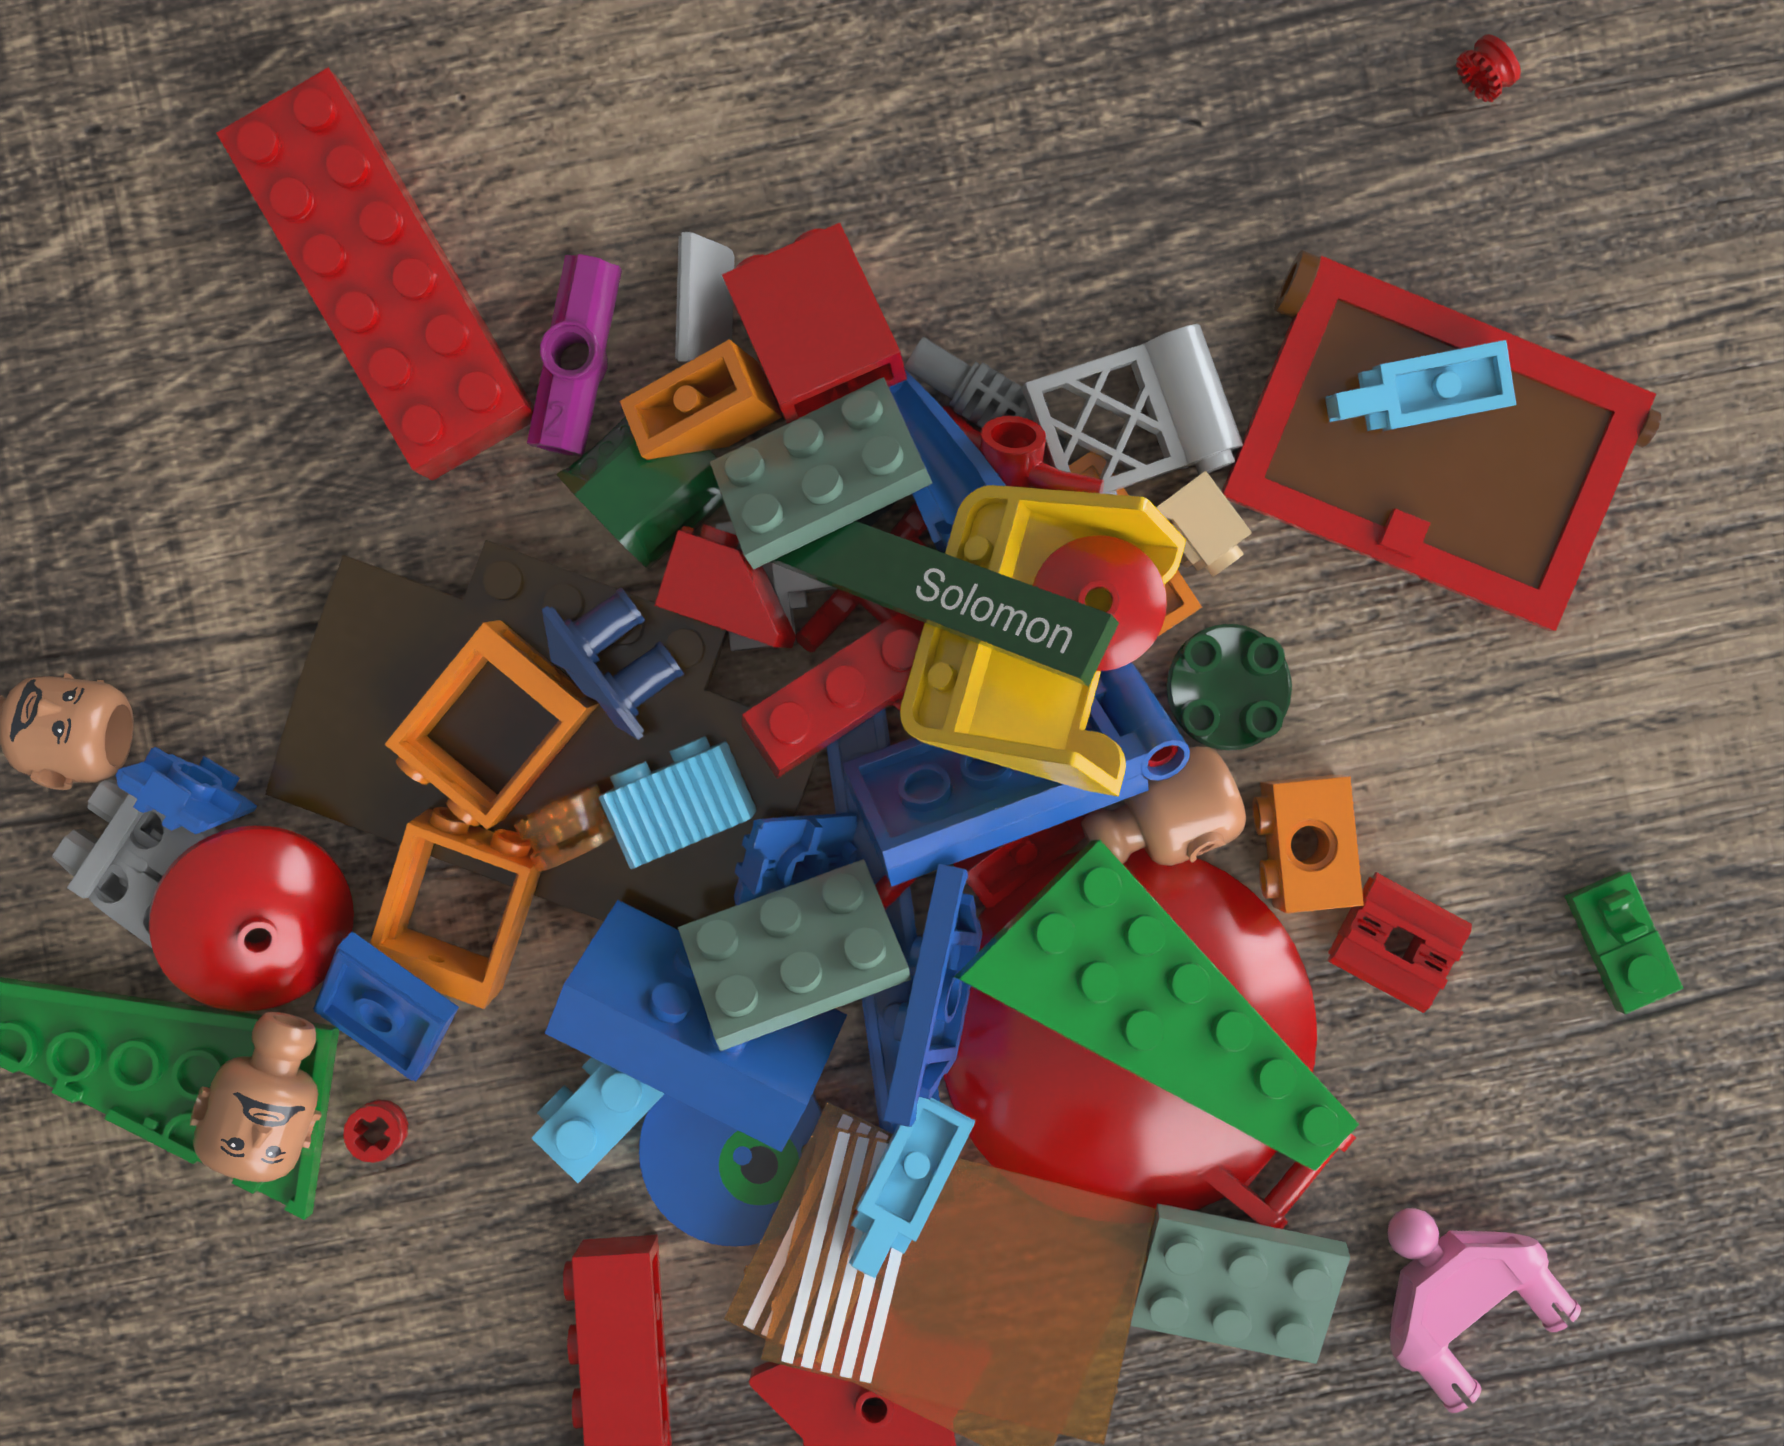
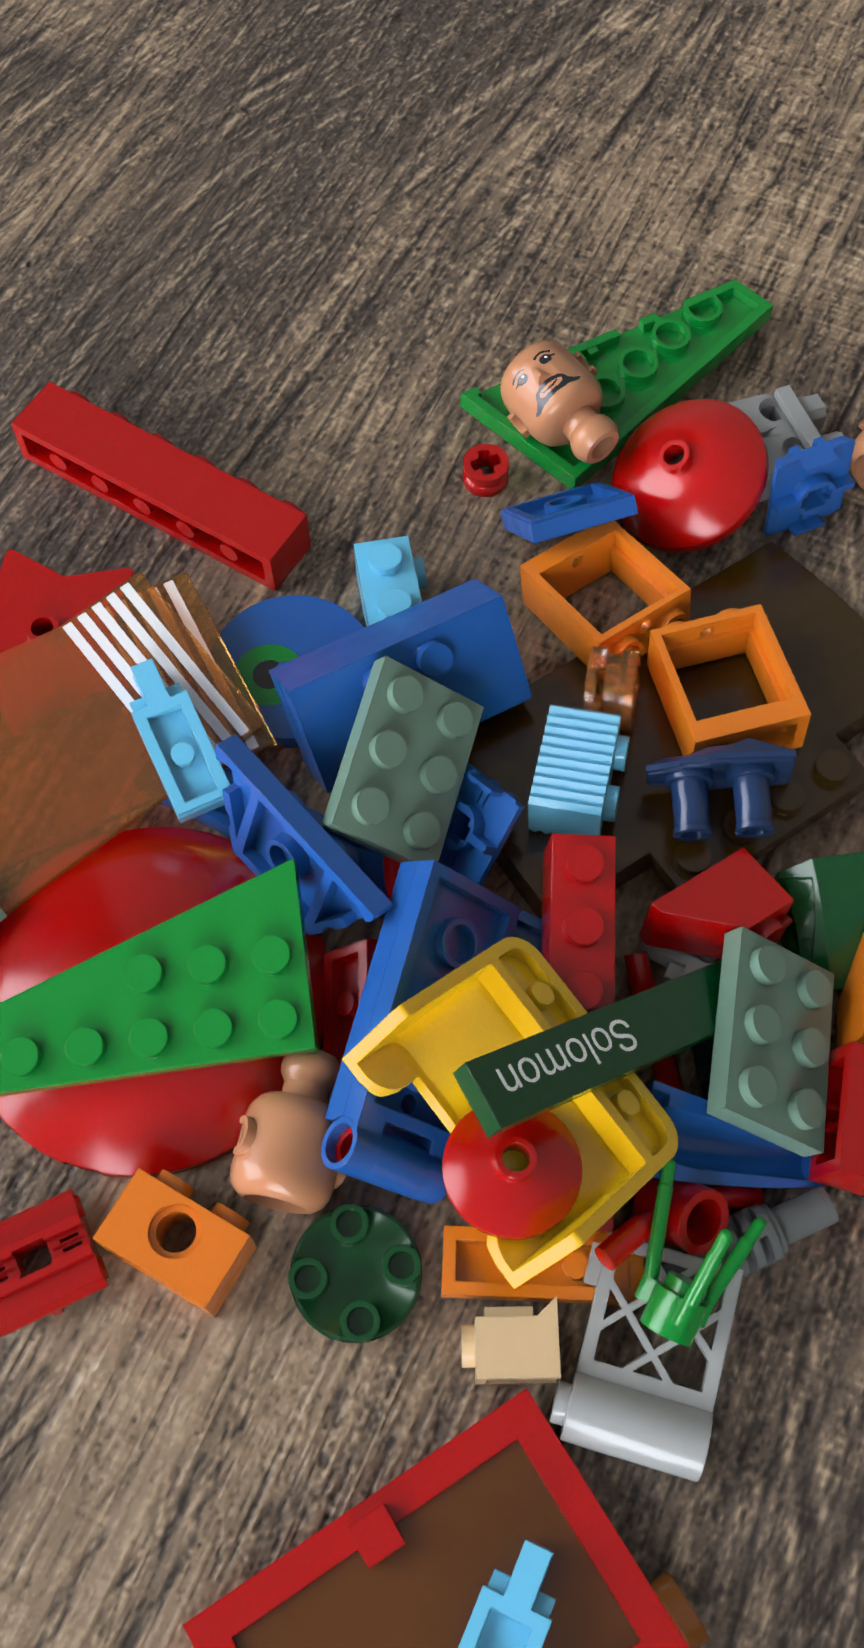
camera: 125 degrees right, 25 degrees down
(1089, 412) = (679, 1303): none -> green plant

